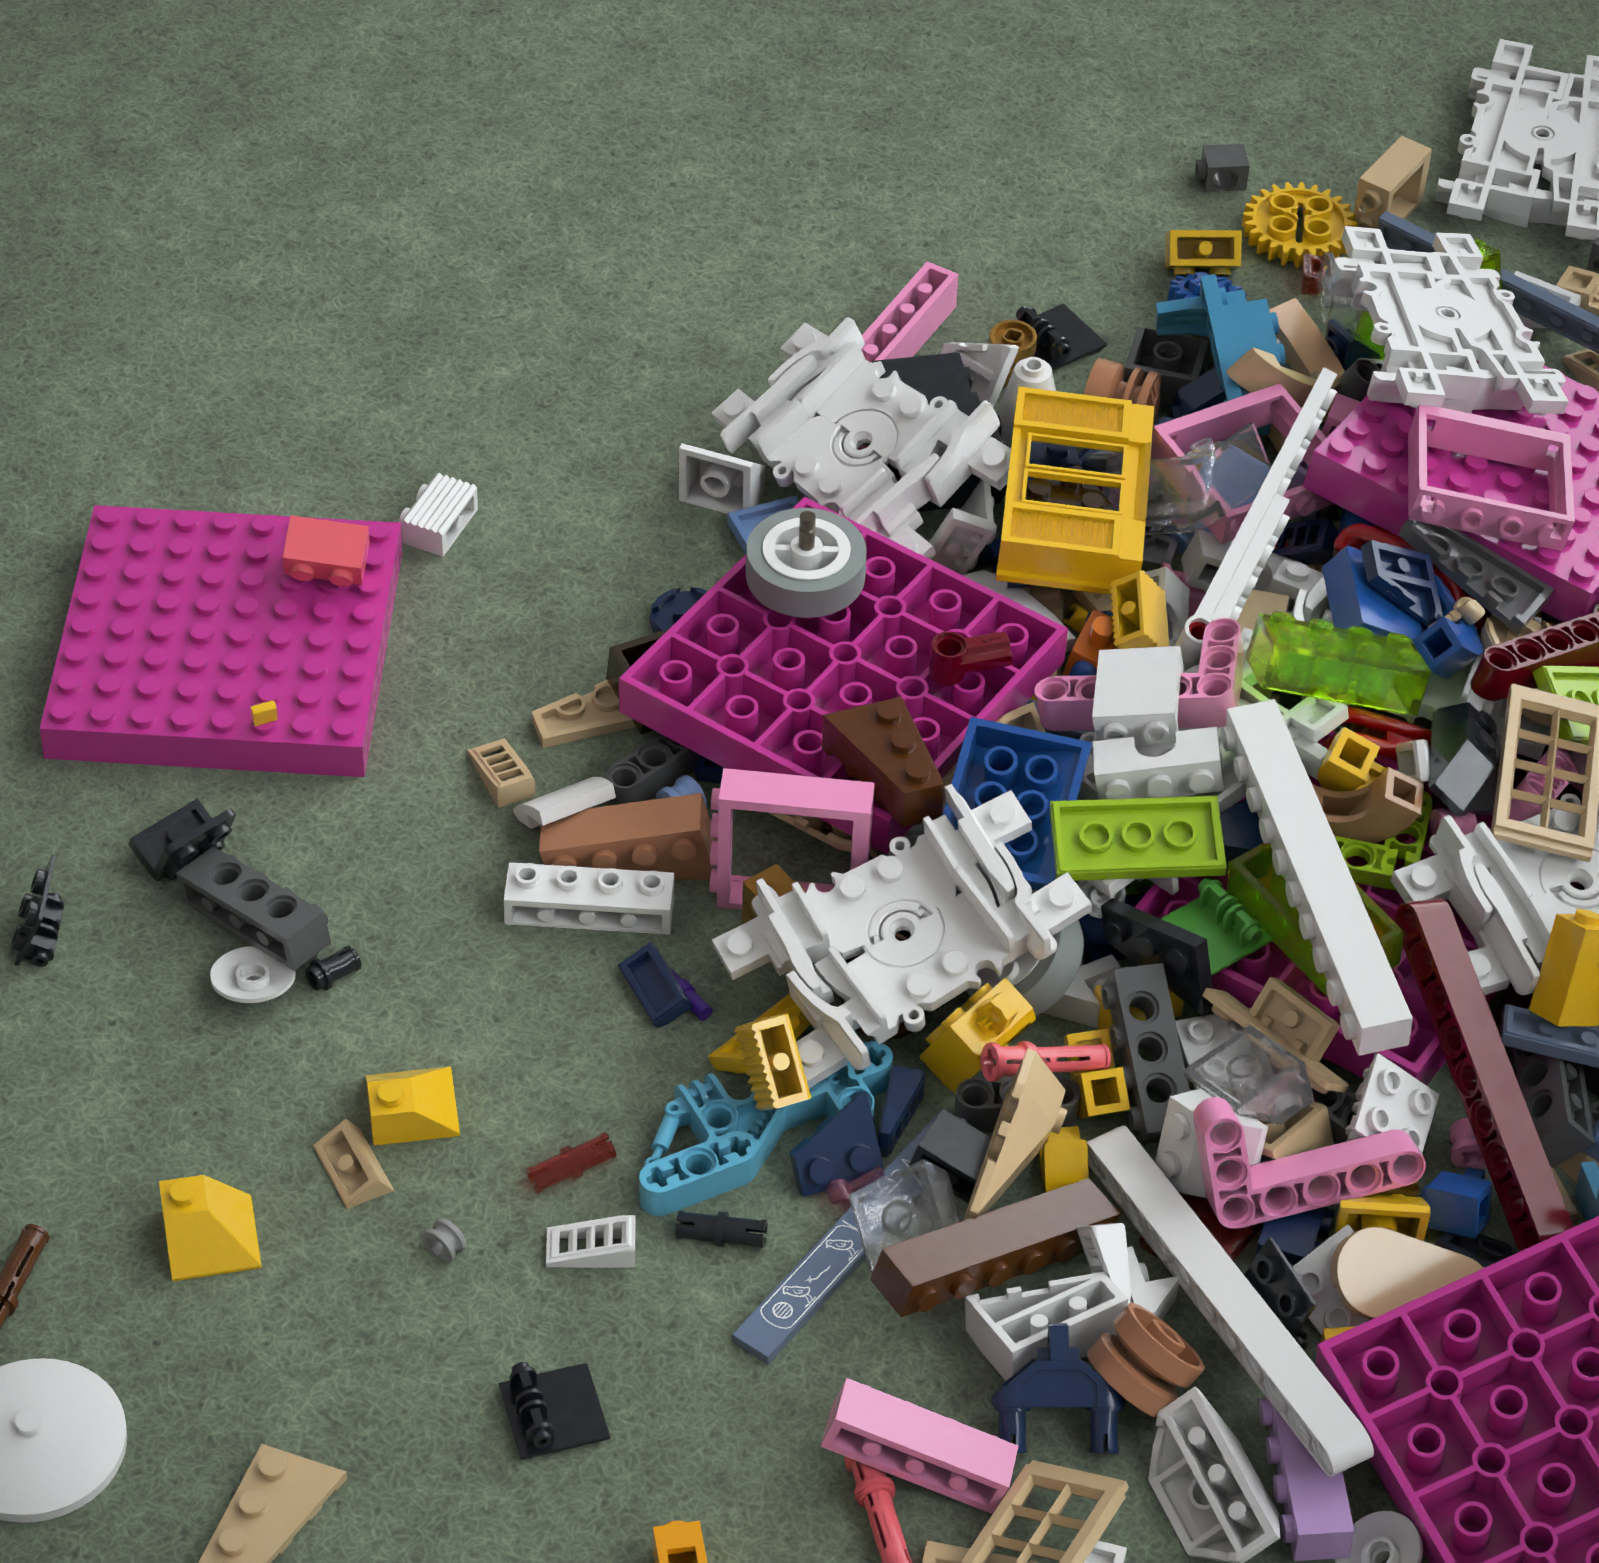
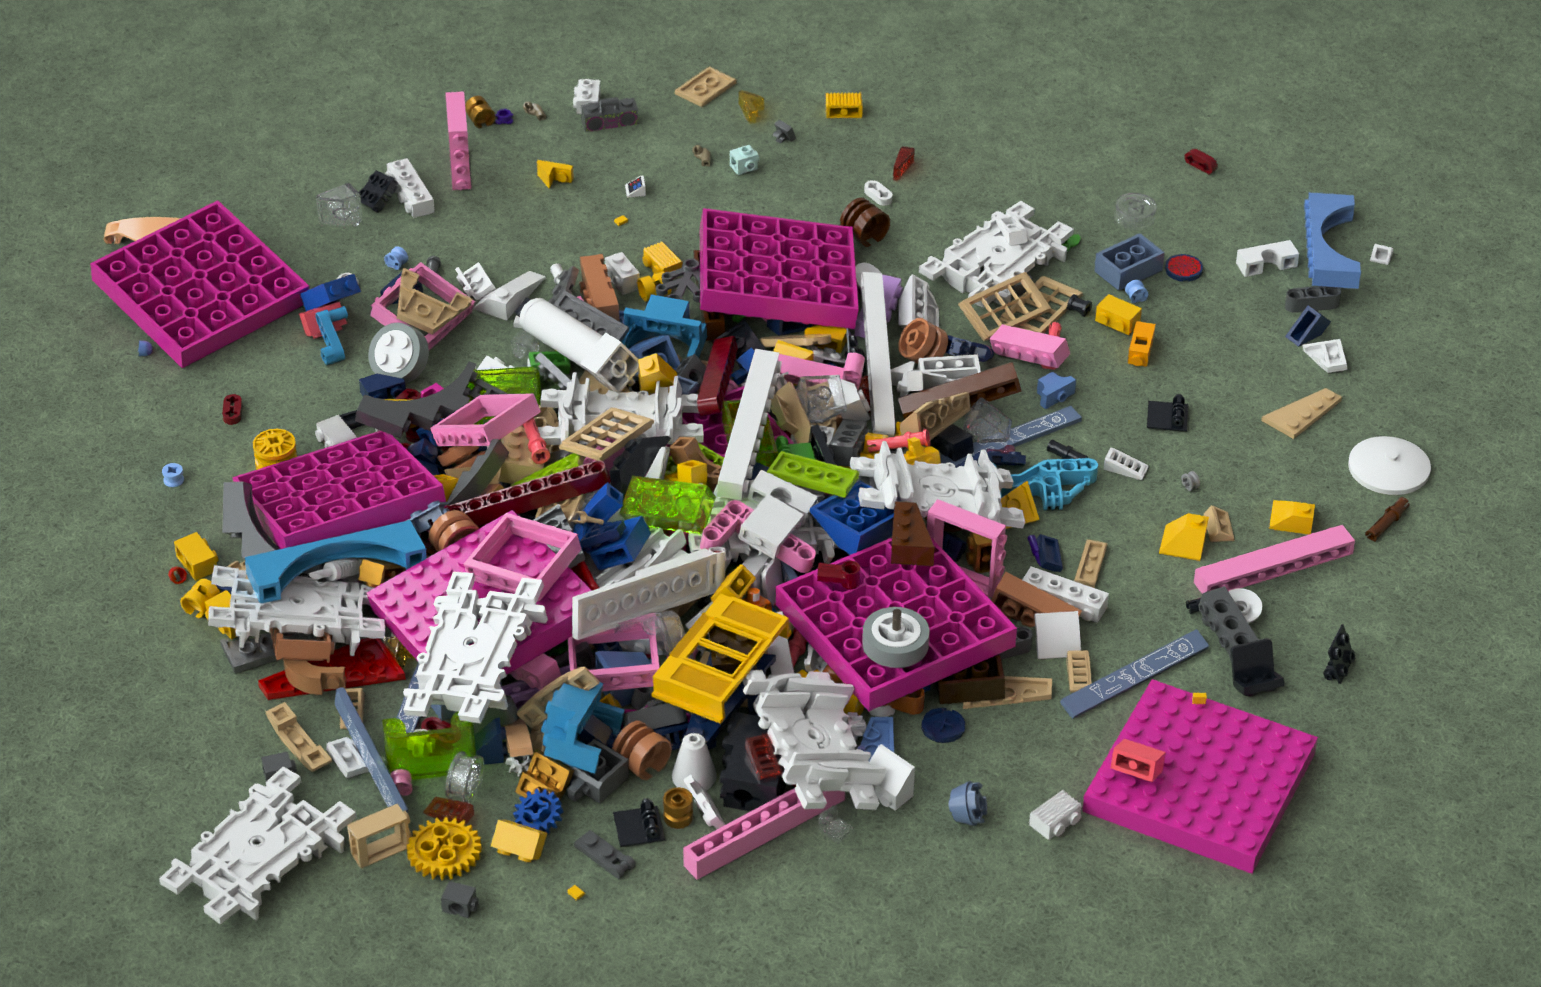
camera: 155 degrees left, 5 degrees down
(212, 1098) = (1276, 560): none -> bright pink brick
(400, 797) = (1134, 674): none -> sand blue tile
(570, 997) = (1091, 563): none -> tan tile
(571, 1162) = (1121, 495): clear red pin -> none
(579, 474) = (968, 804): none -> sand blue cone
(773, 1062) = (1024, 464): yellow brick -> none
(816, 1377) = (1055, 389): none -> medium blue brick
(922, 378) = (758, 742): none -> clear red slope
(1076, 287) = (604, 854): none -> dark grey plate
(1079, 234) = (576, 892): none -> yellow piece

